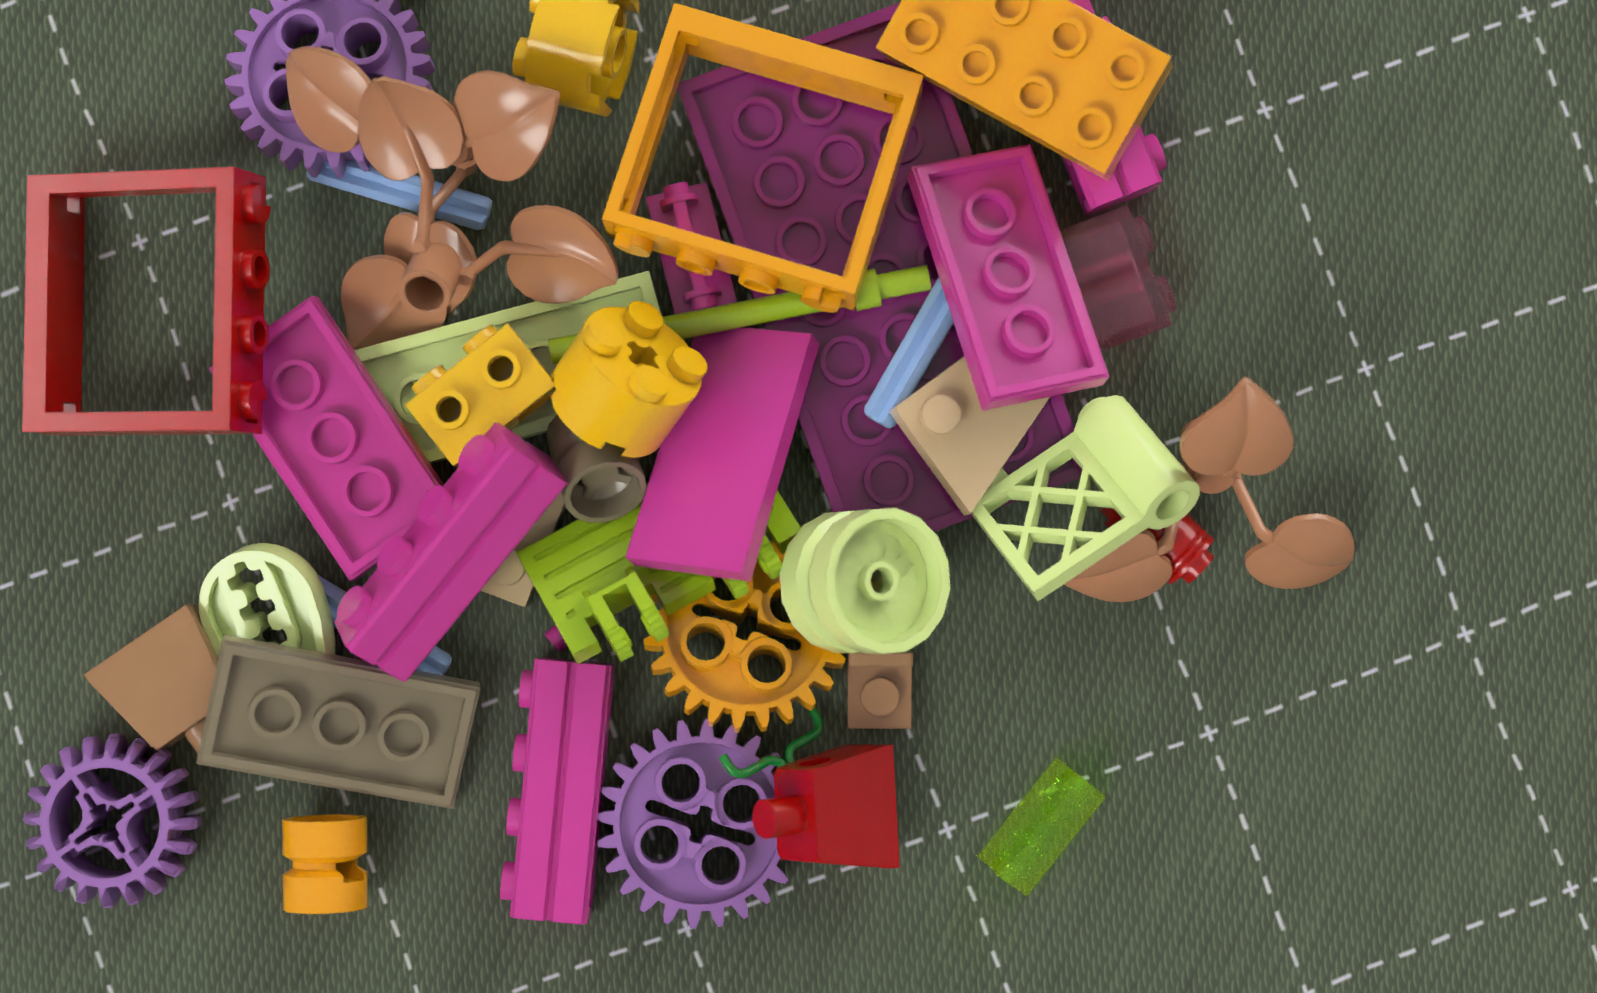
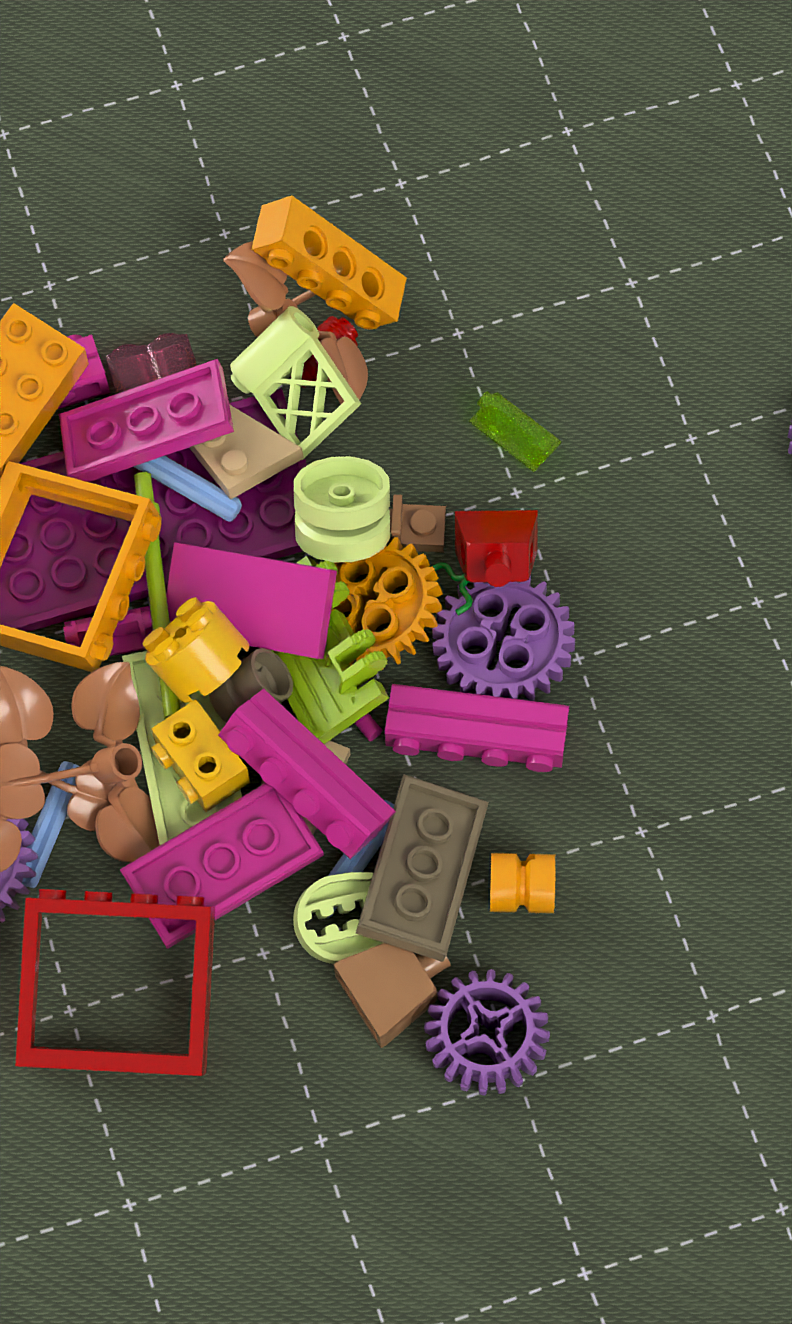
camera: 85 degrees left, 20 degrees down
(1276, 535) = (328, 263): none -> light orange brick

